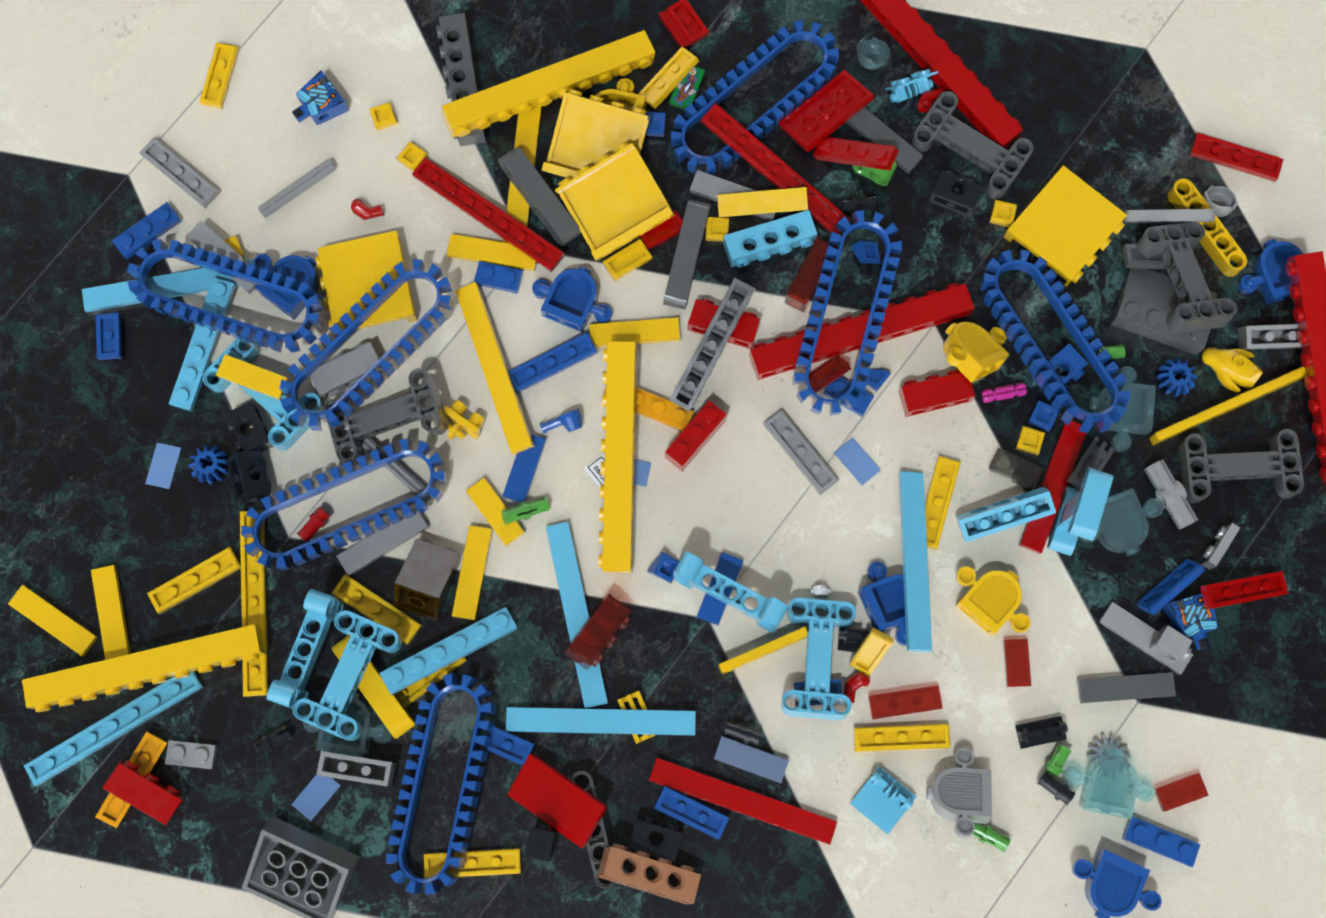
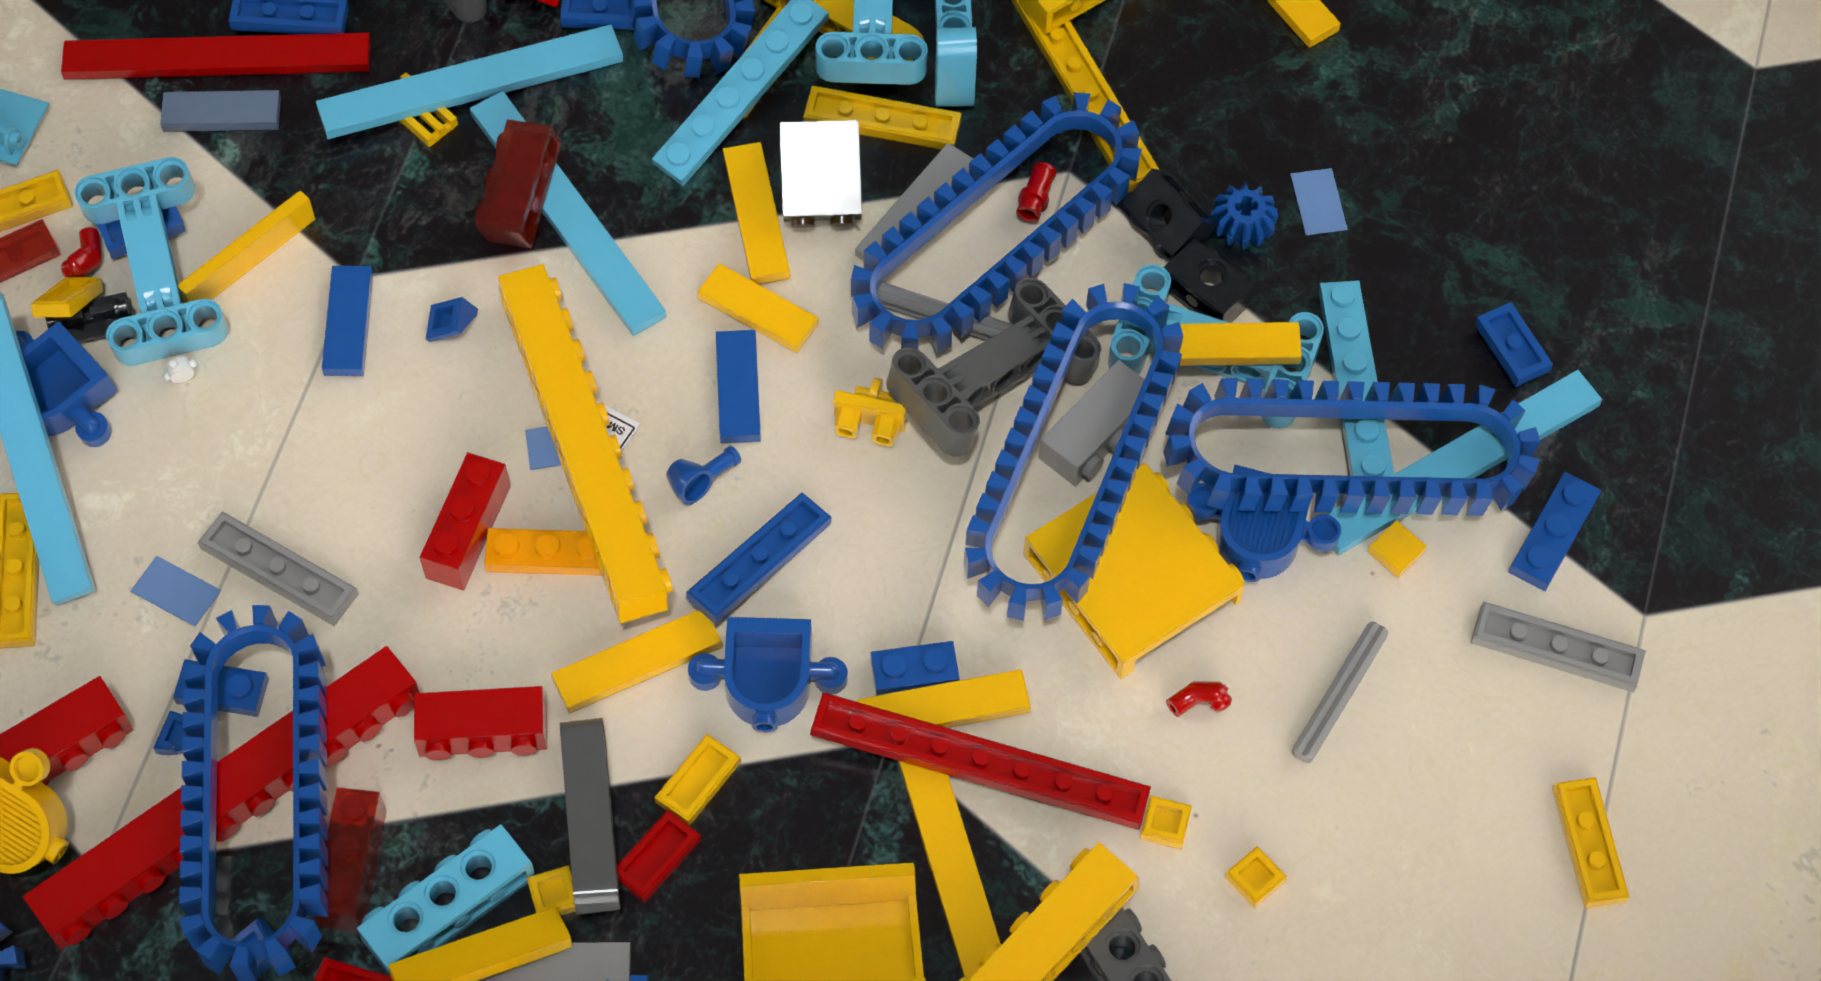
camera: 155 degrees right, 15 degrees down
(194, 580) = (1179, 65): yellow tile -> none
(208, 240) = (1412, 532): light grey tile -> none
(319, 100) = (1381, 853): torso -> none
(494, 368) = (855, 515): yellow tile -> none
(525, 510) = (707, 317): bright green pin -> none
(539, 196) = (899, 818): dark grey beam -> none
(614, 200) = (748, 847): yellow panel -> none
(691, 573) = (250, 283): medium azure beam -> none
(712, 344) = (479, 654): dark grey brick -> none
(744, 733) = (243, 137): black pin -> none
(828, 373) = (266, 701): clear red tile -> none

